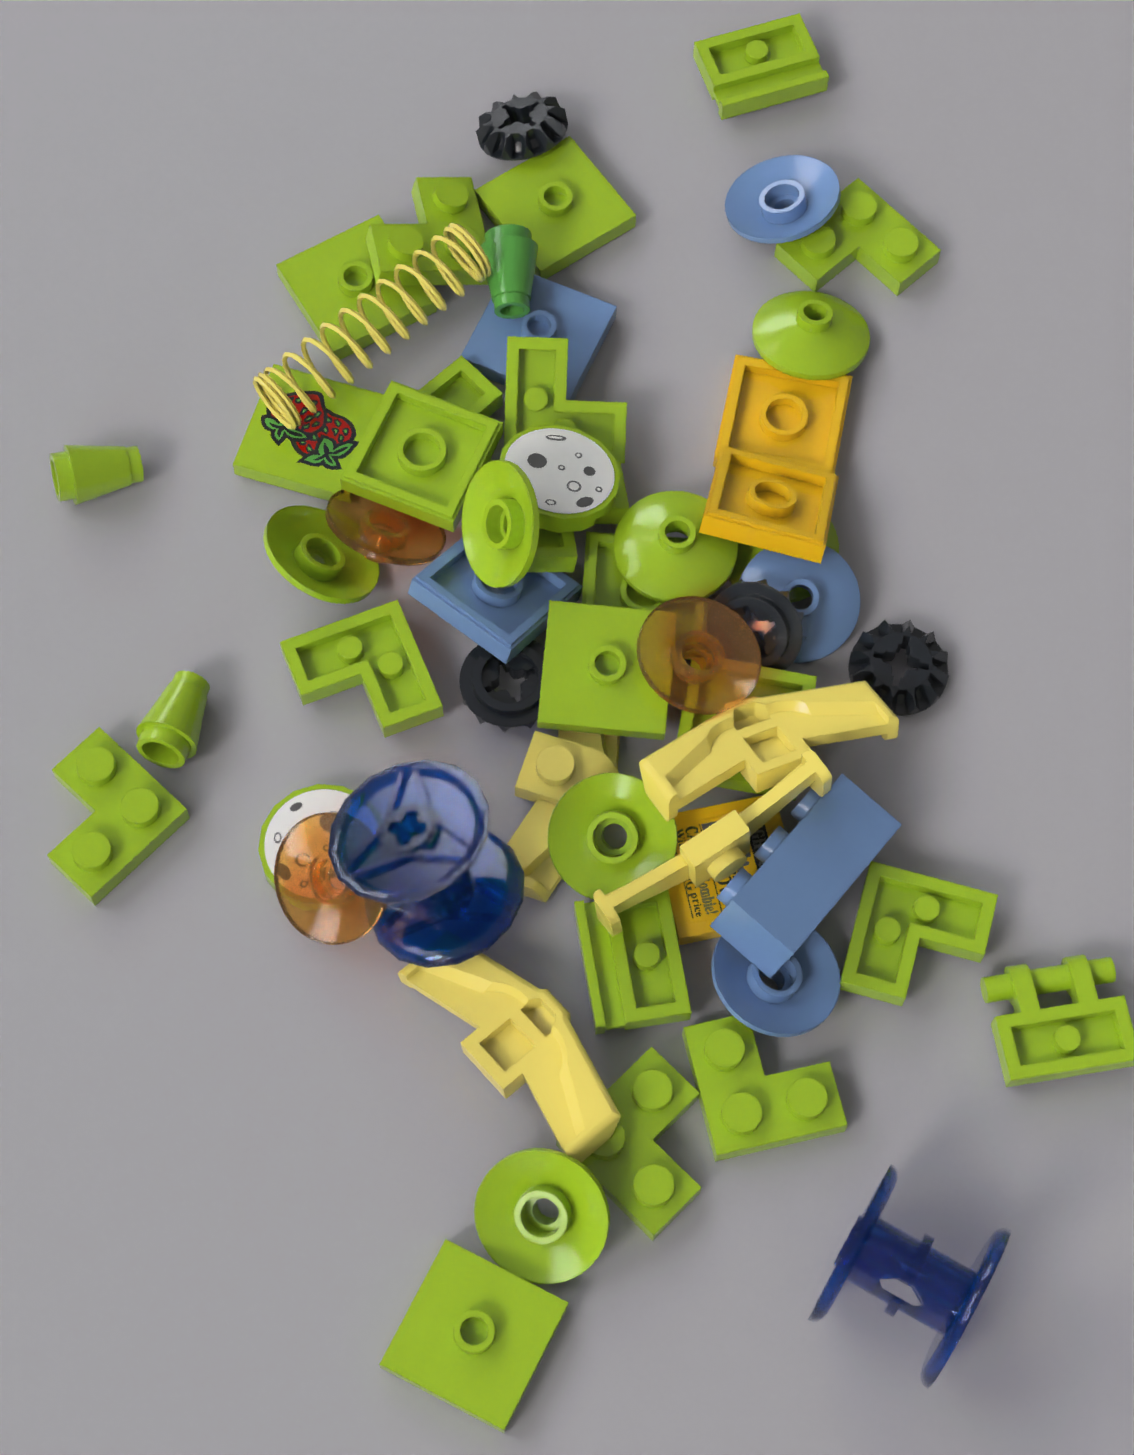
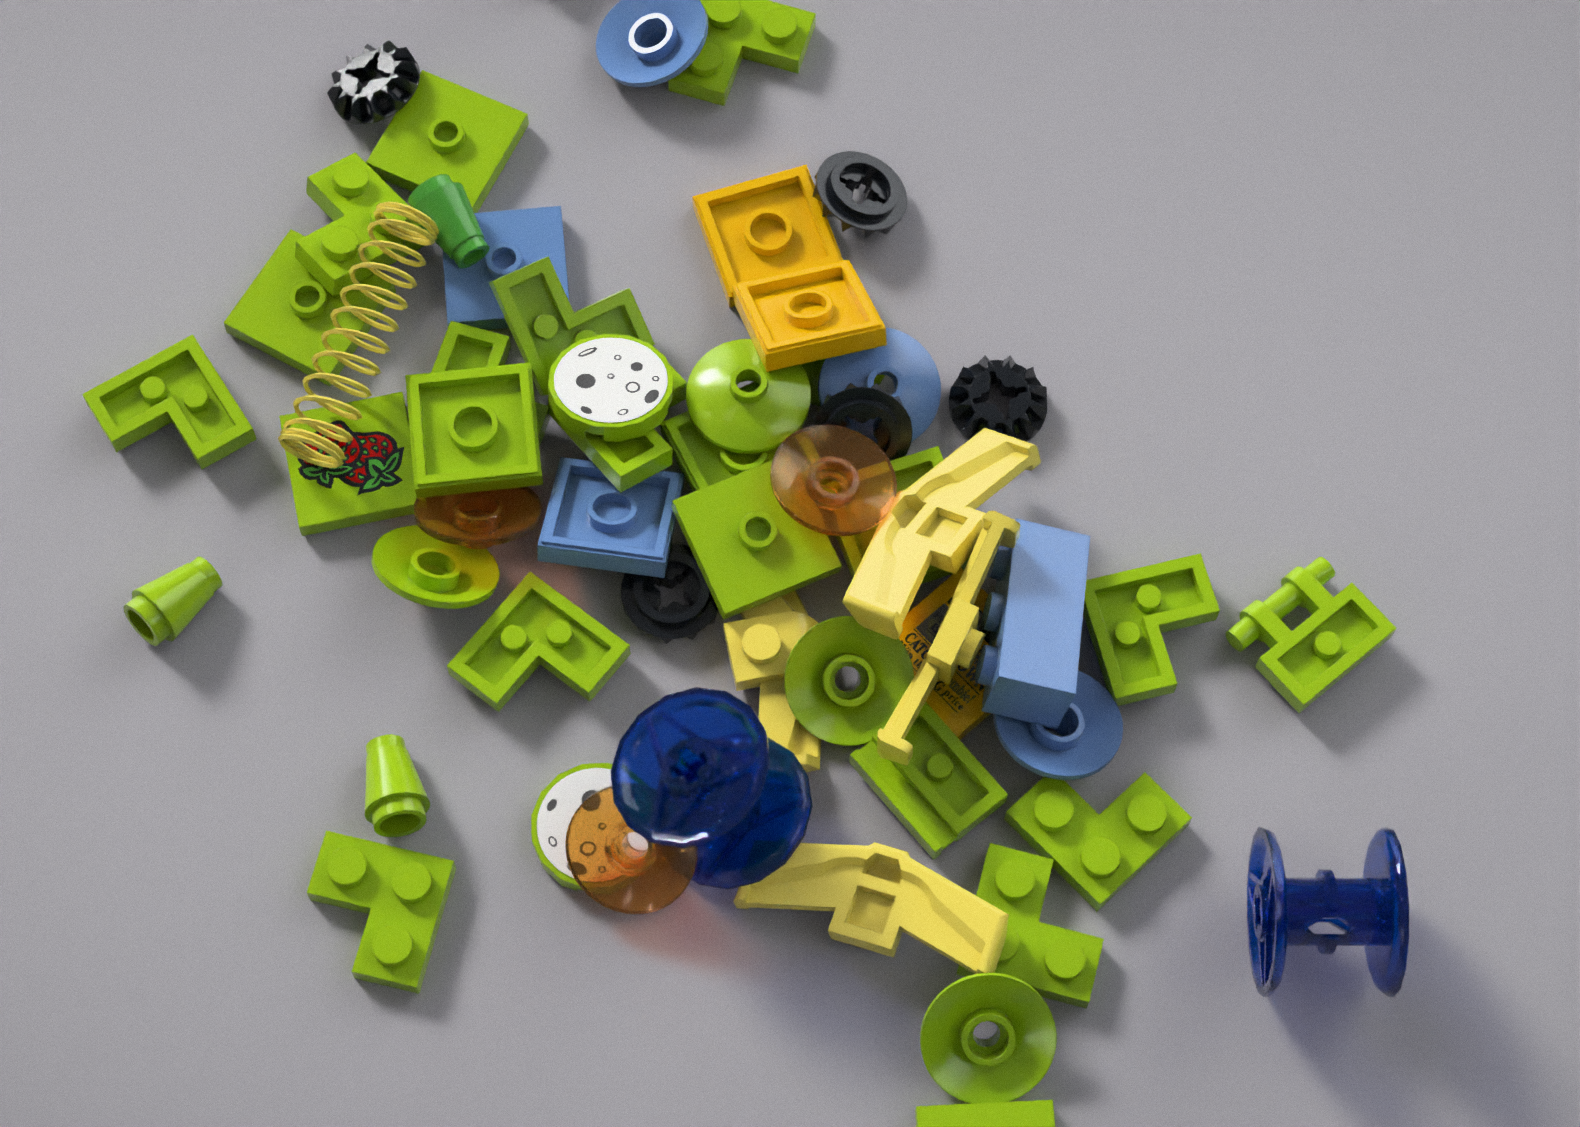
camera: 30 degrees left, 0 degrees up
(204, 300) = (174, 388): none -> lime plate
(500, 524) = (594, 454): lime dish -> none
(810, 335) = (747, 146): lime dish -> none
(880, 400) = (884, 192): none -> black gear

